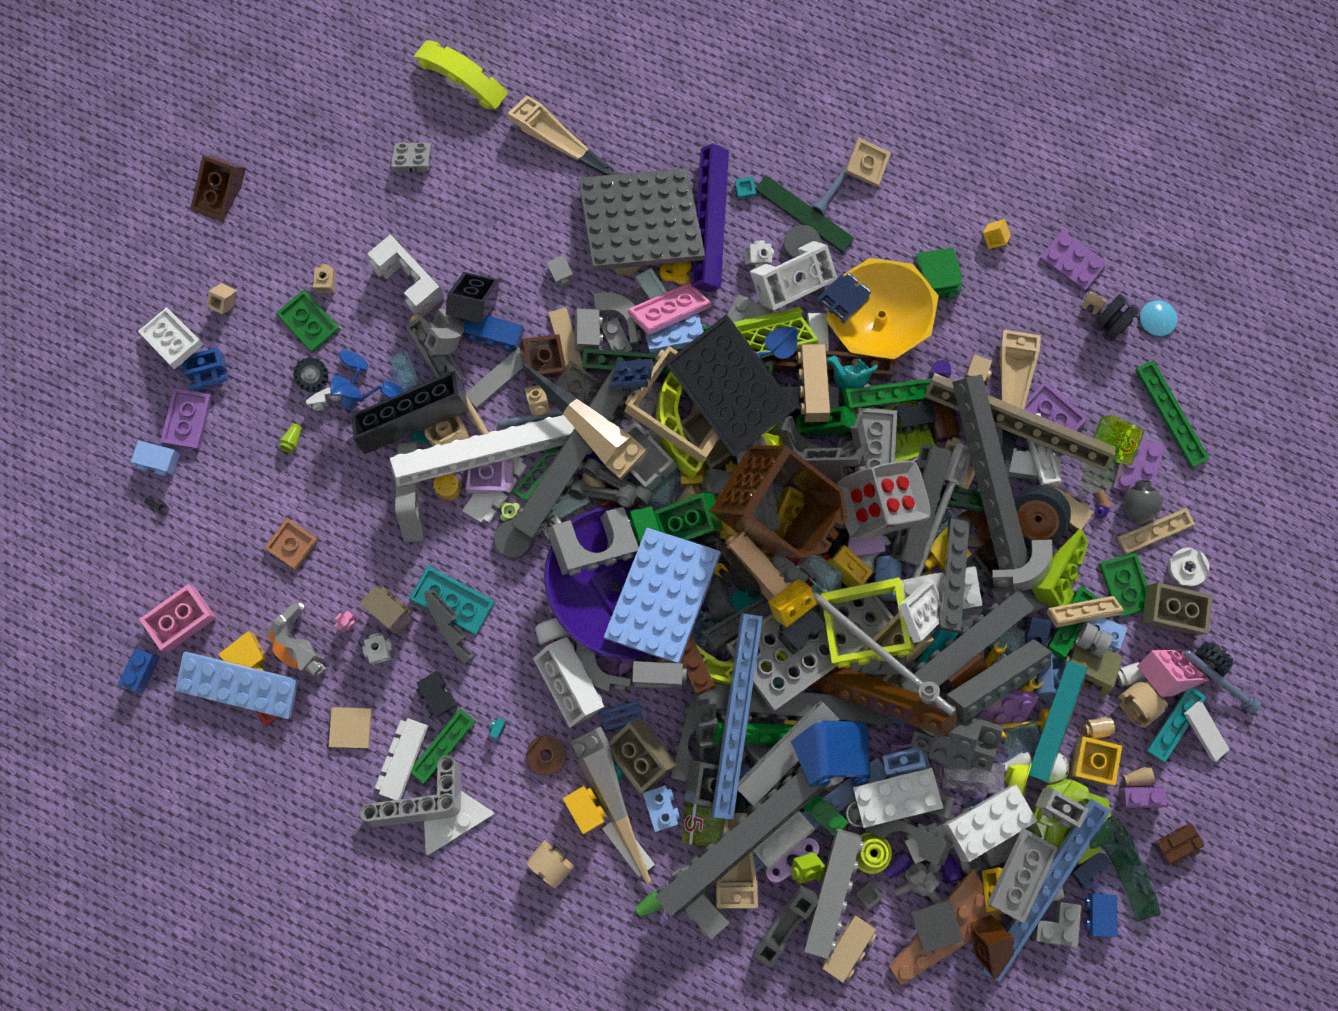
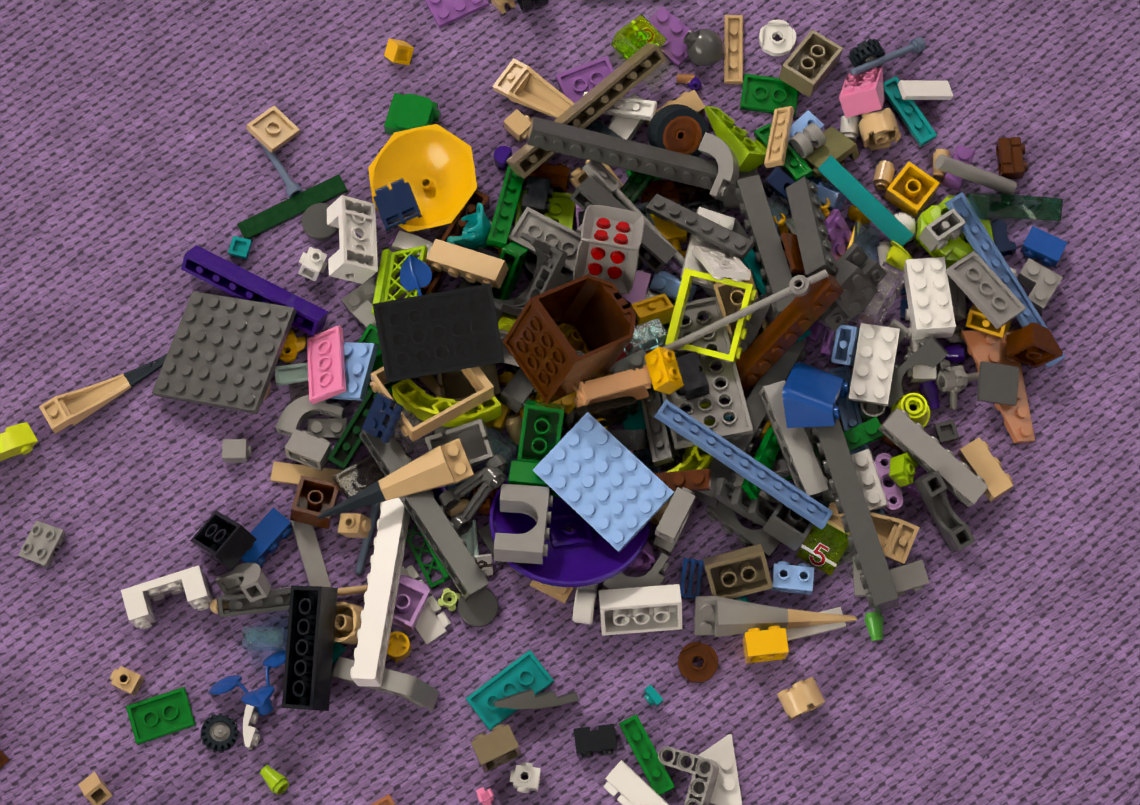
camera: 65 degrees left, 5 degrees down
(1140, 817) = (975, 174): none -> light grey piece

